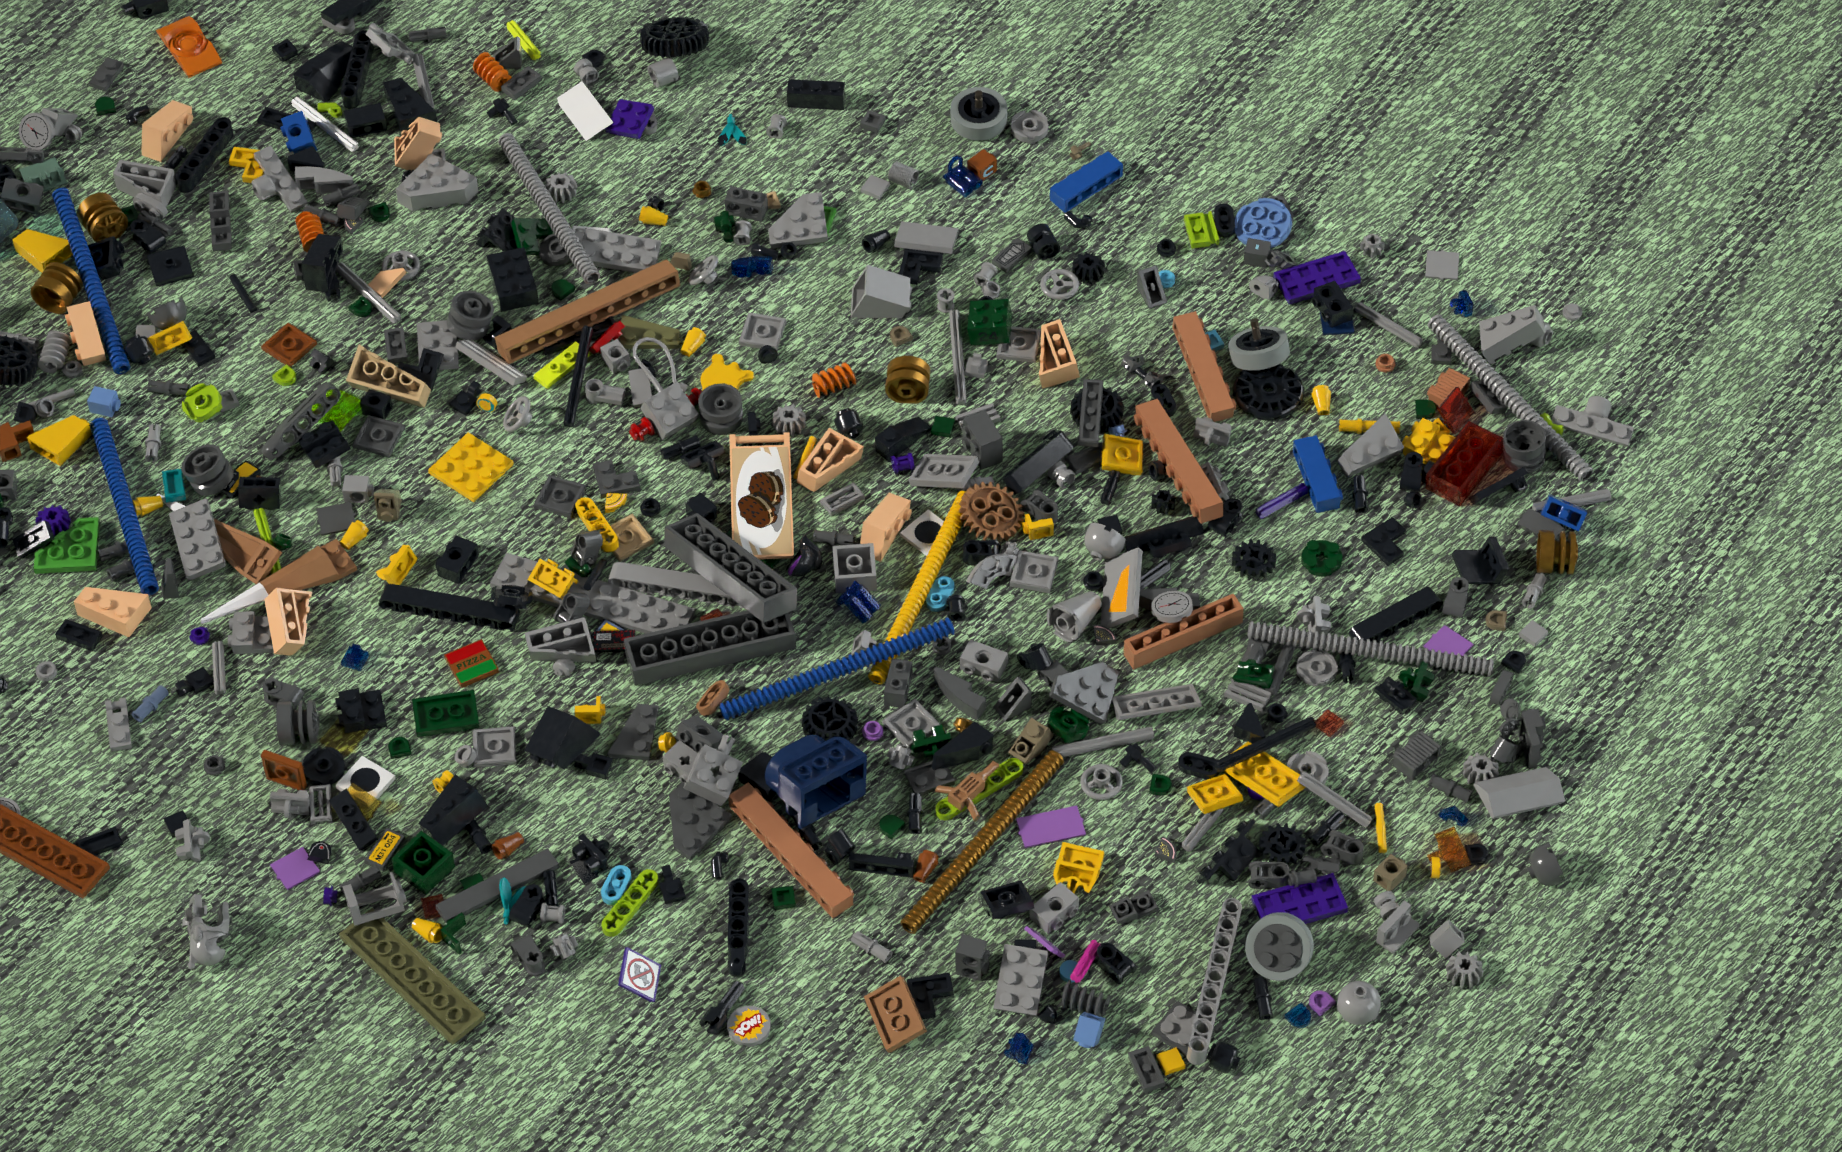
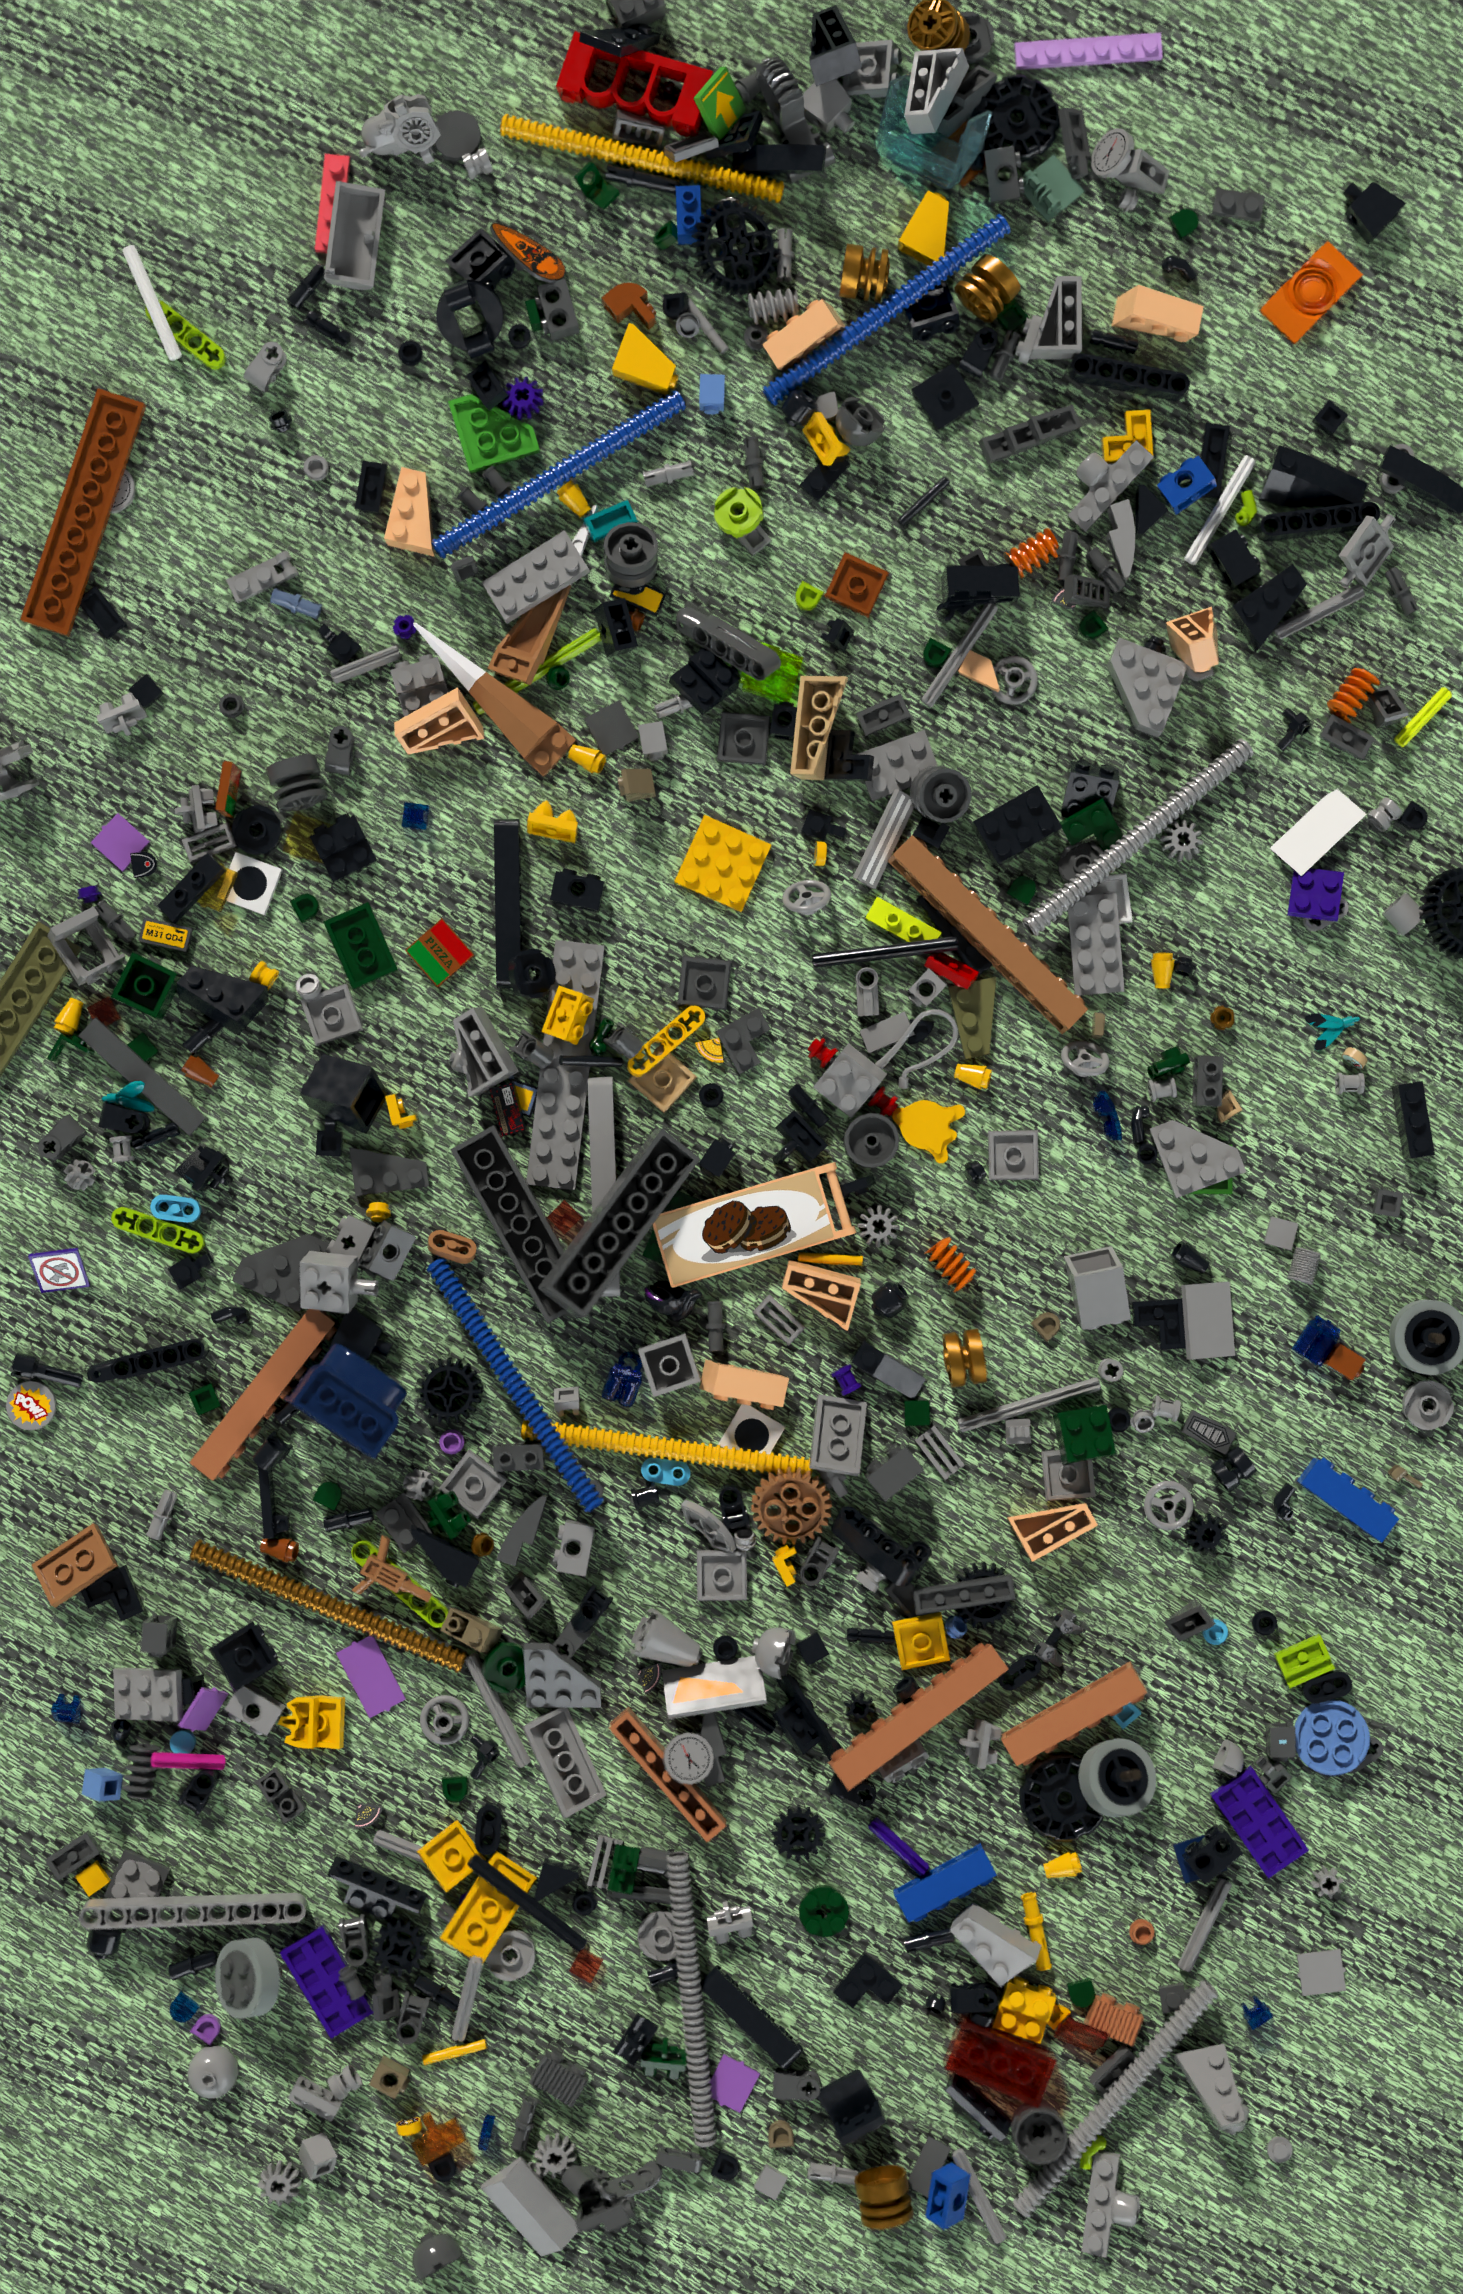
camera: 75 degrees right, 35 degrees up
(759, 120) = (1355, 1057): none -> tan tile

